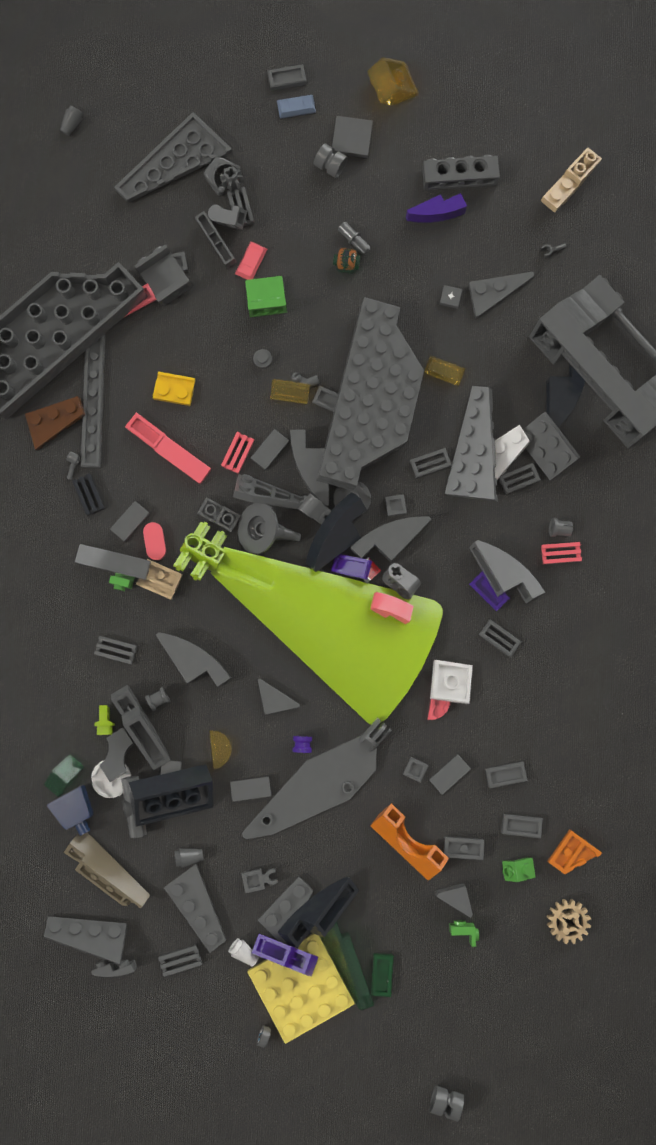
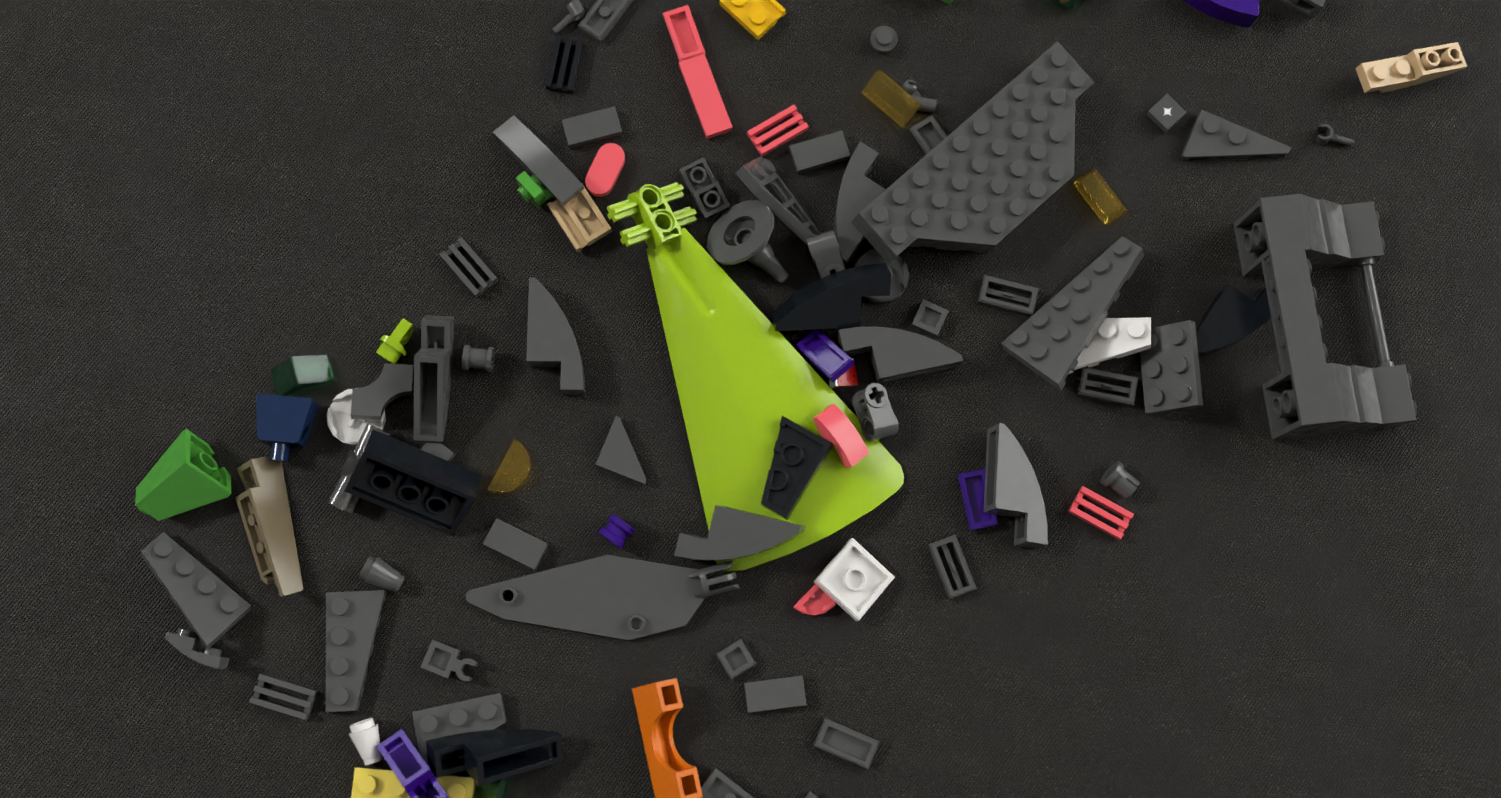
camera: 30 degrees right, 5 degrees down
(38, 880) = (182, 479): none -> bright green slope
(371, 702) = (736, 535): none -> dark grey slope
(377, 643) = (793, 467): none -> black wing

